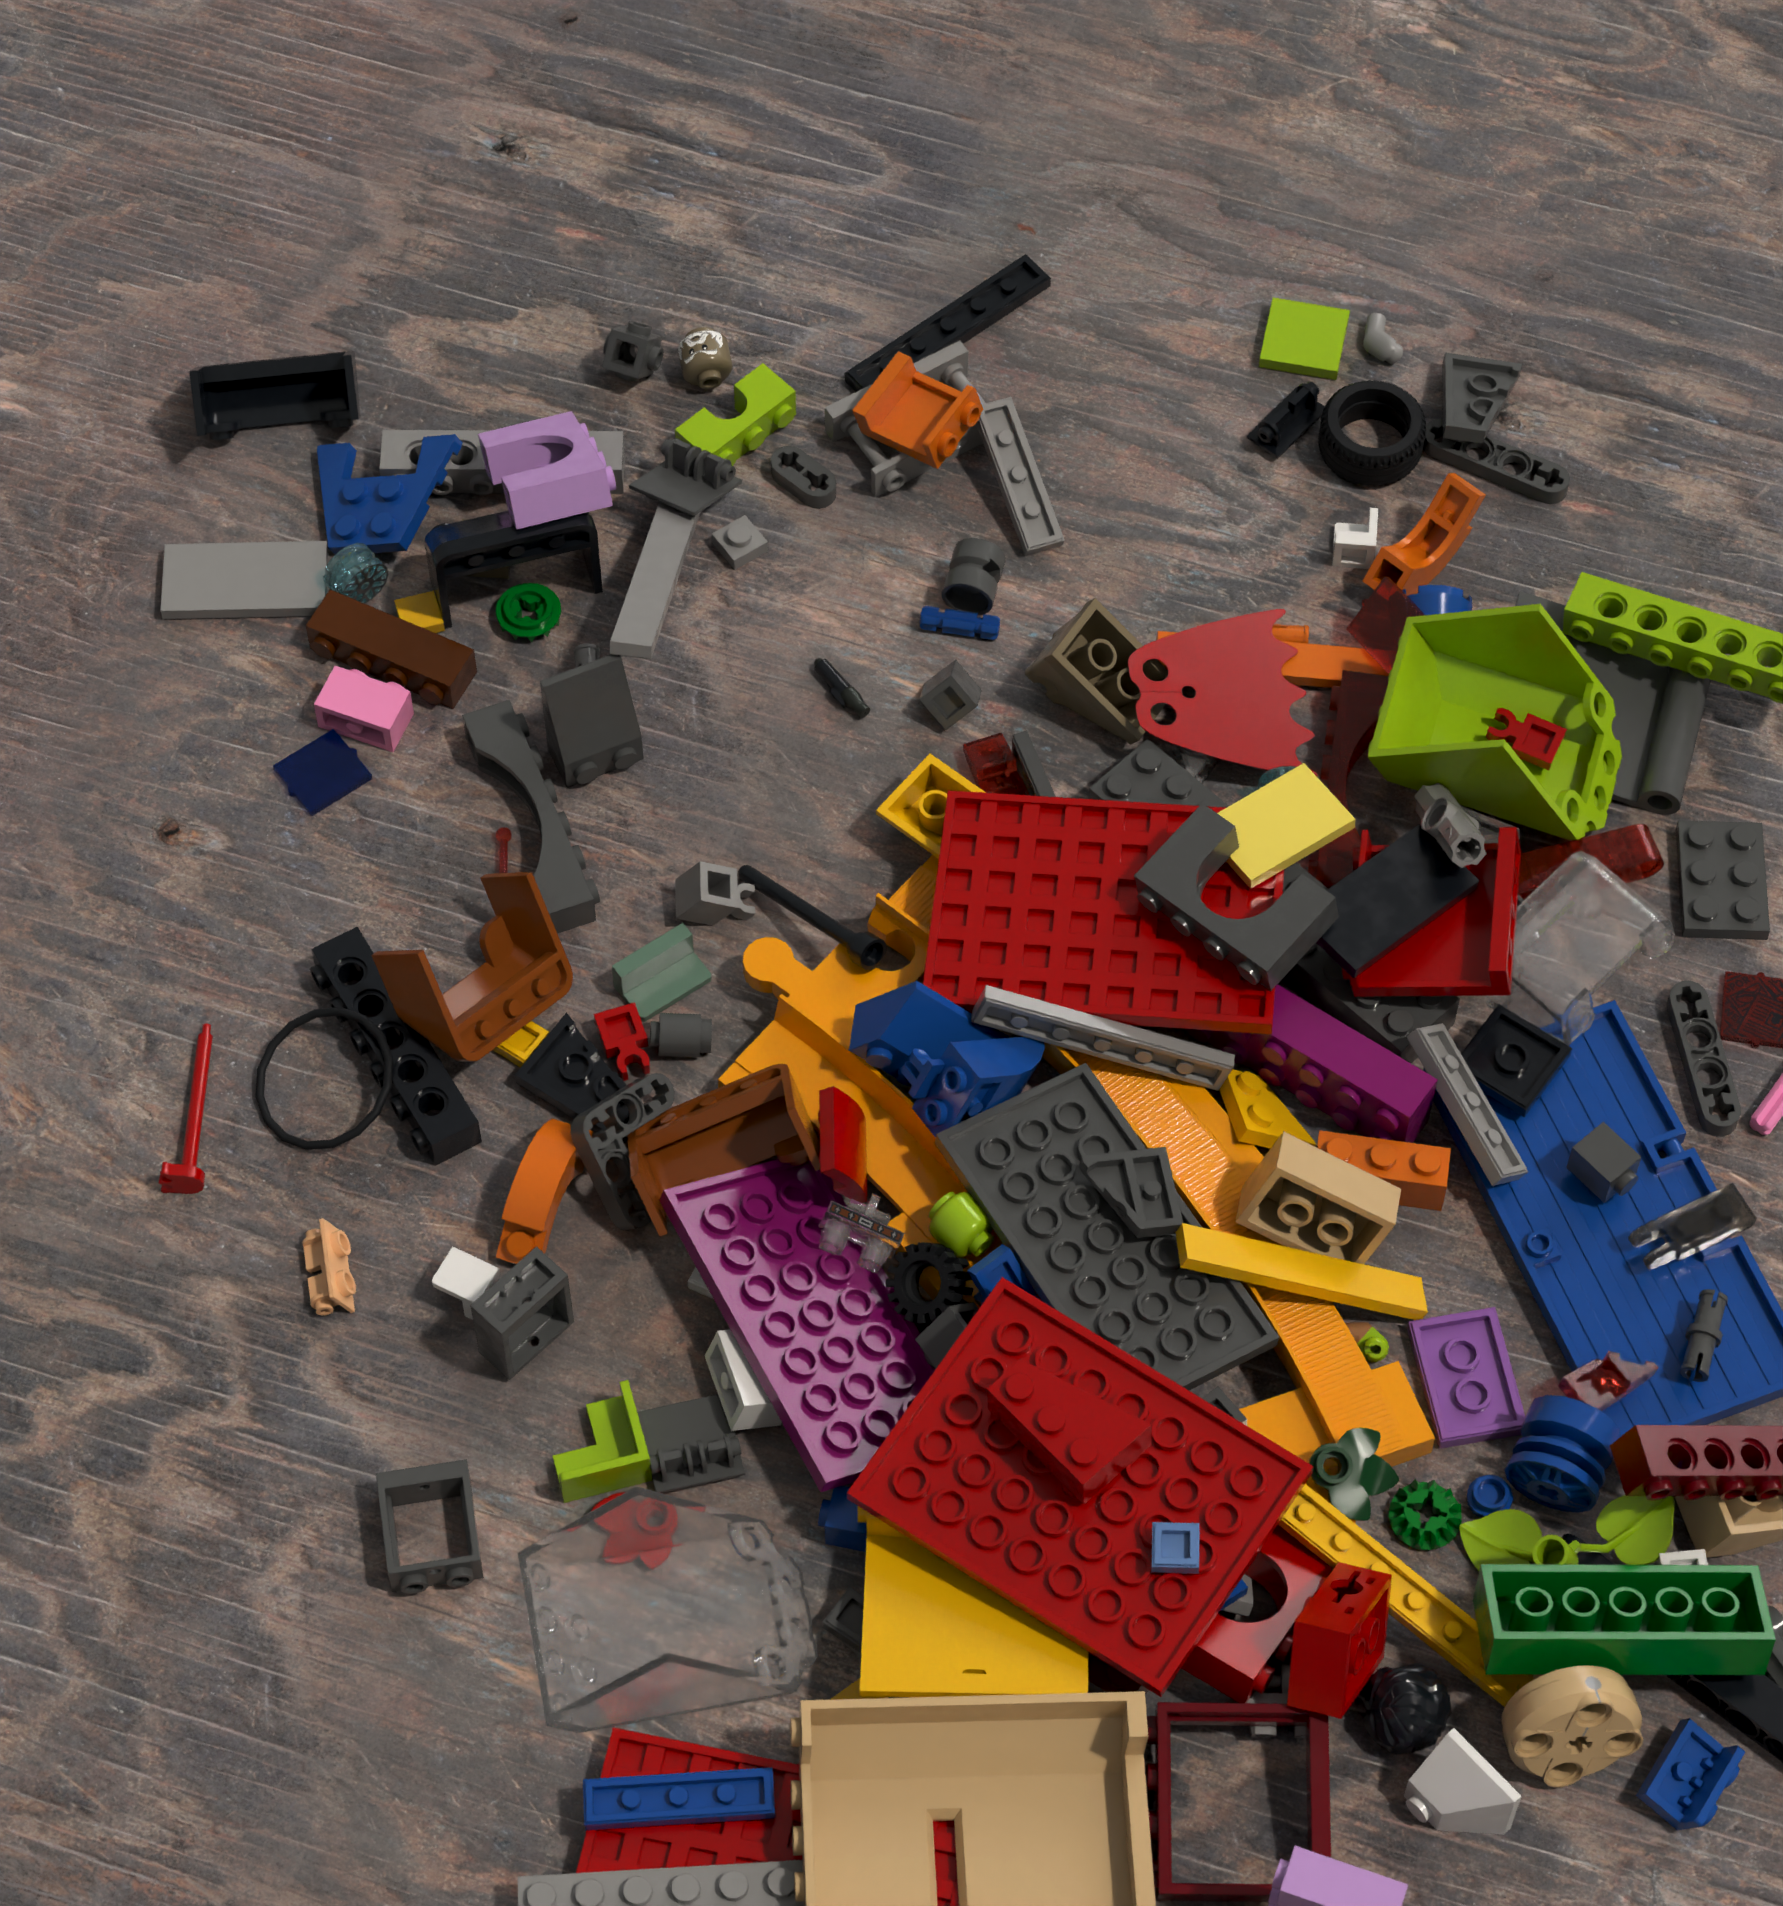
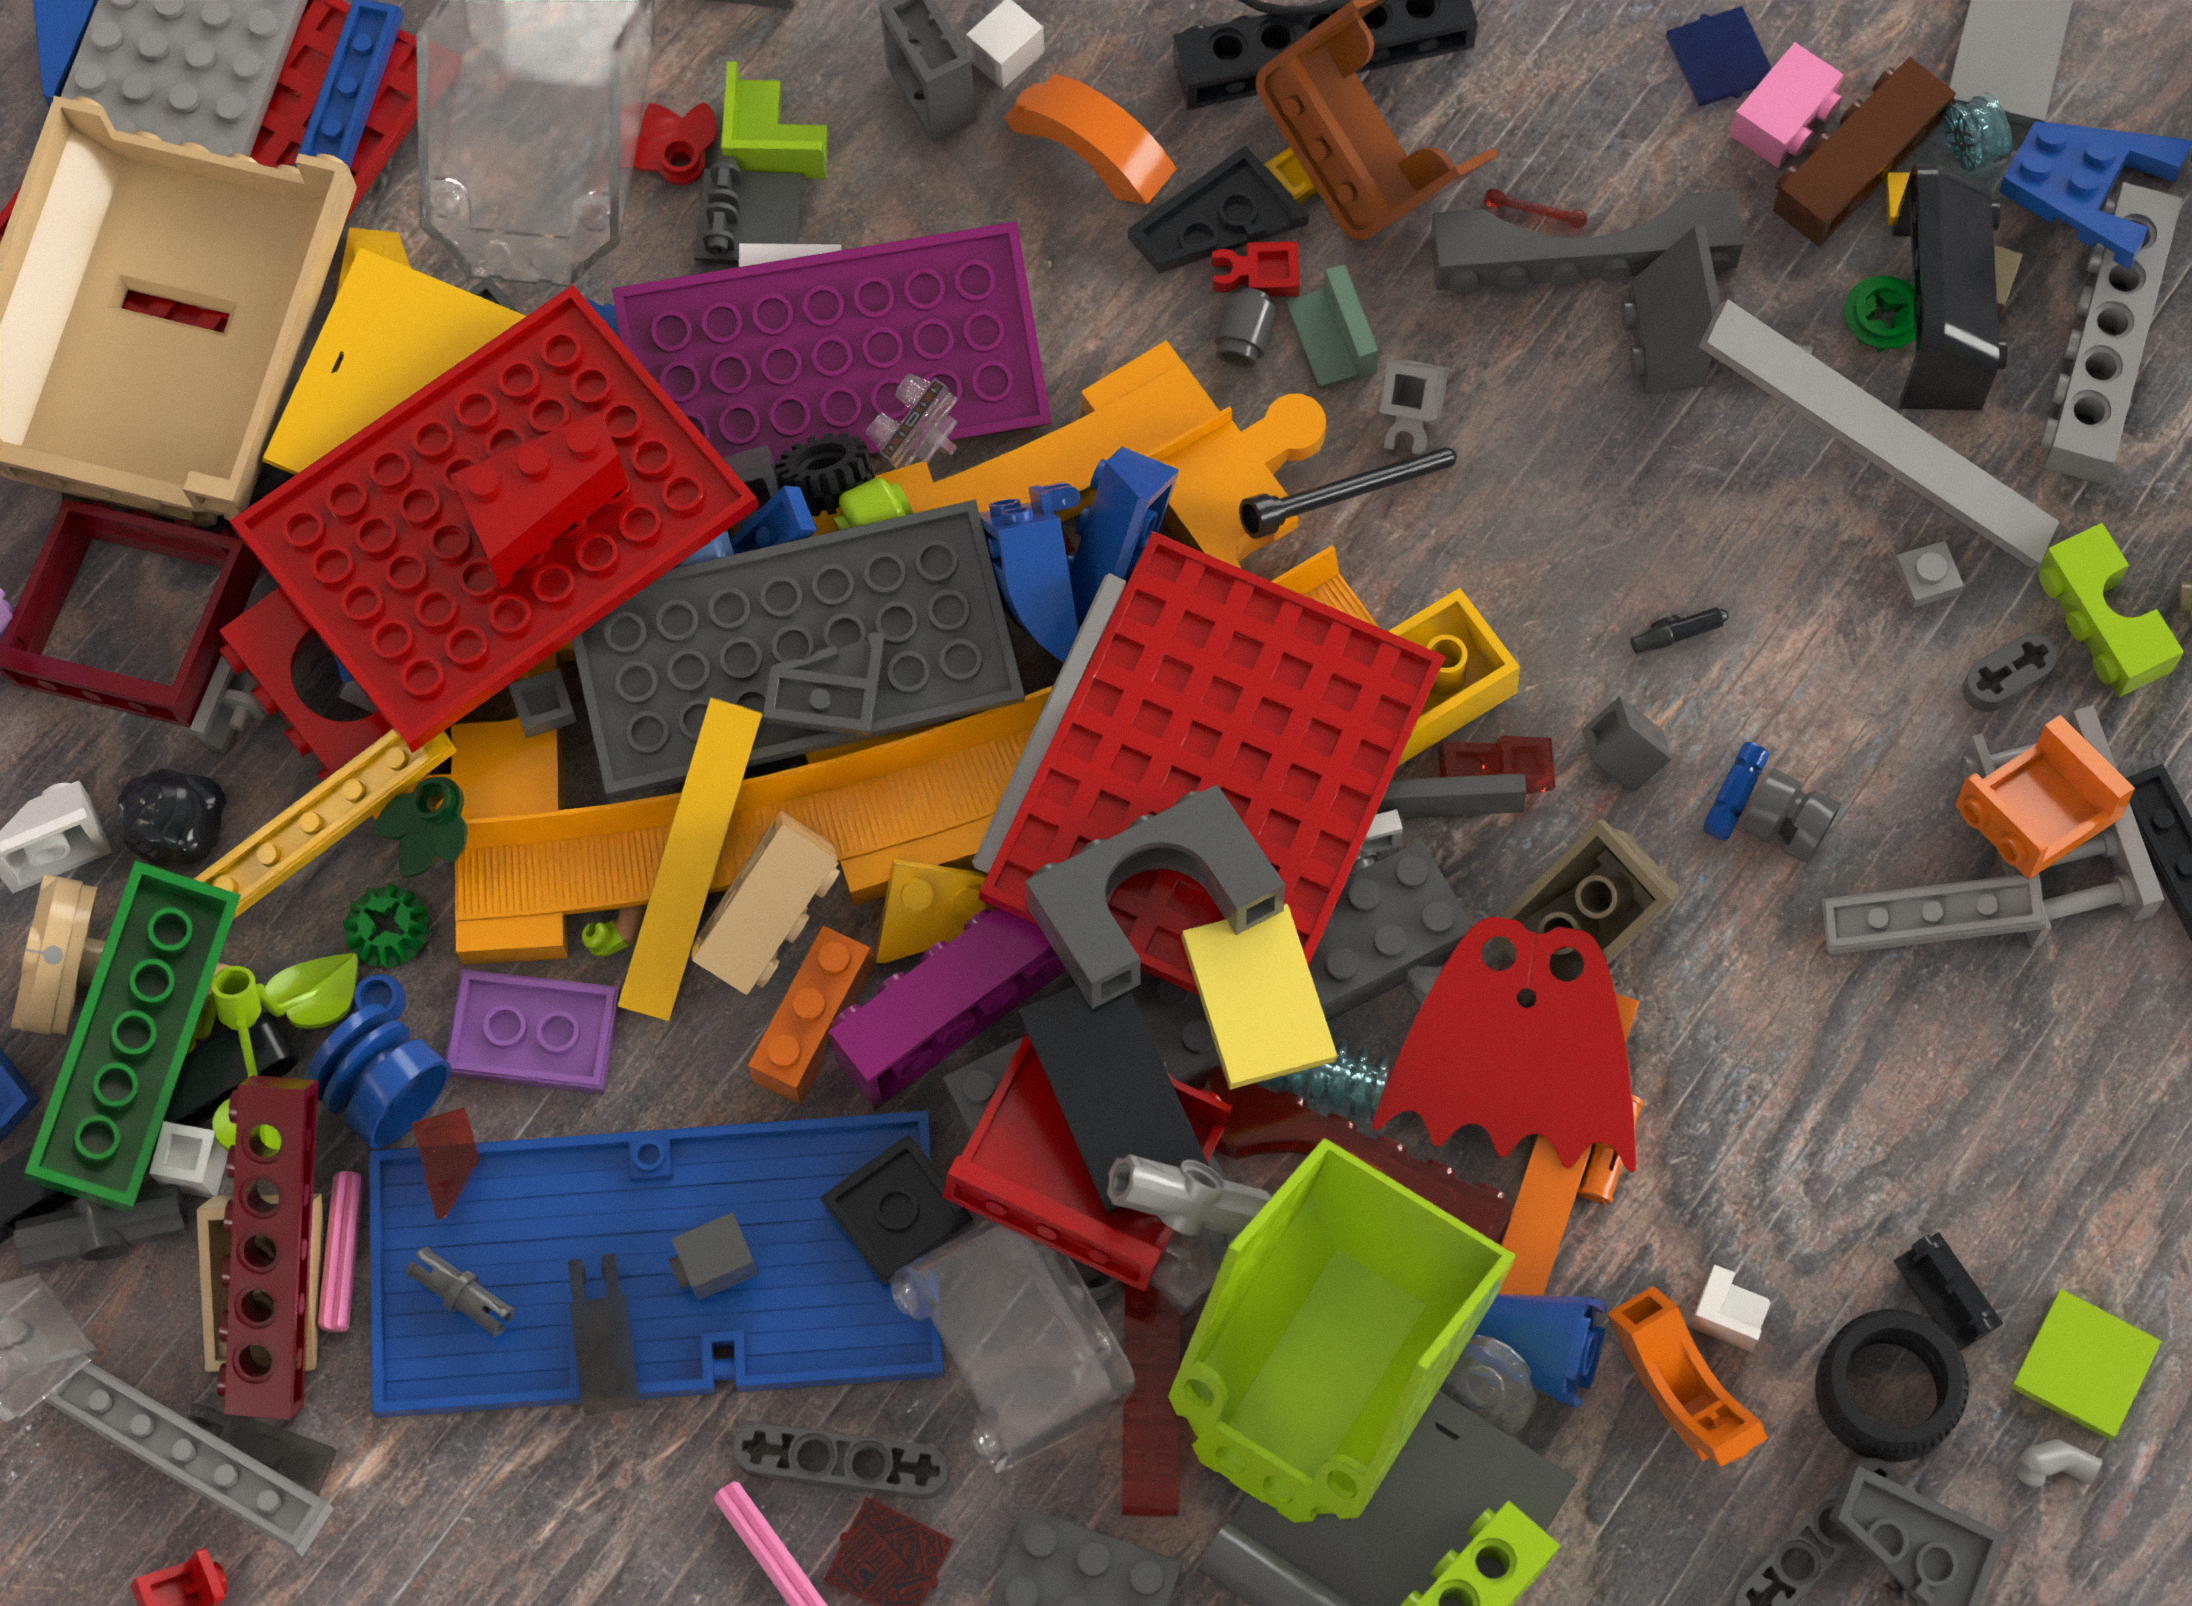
camera: 110 degrees right, 10 degrees up
(547, 469) = (1989, 337): lavender arch -> none
(609, 1144) = (1108, 197): dark grey beam -> none
(687, 478) = (2015, 513): dark grey hinge -> none
(720, 1135) = (1096, 307): dark orange windscreen -> none
(843, 1143) = (1007, 414): red slope -> none
(1175, 1547) = (371, 574): medium blue tile -> none
(1339, 1639) = (236, 739): red piece -> none
(1382, 622) = (1561, 1282): clear red piece -> none
(1467, 1104) = (843, 1123): light grey tile -> none
(1533, 740) = (1329, 1394): red plate -> none

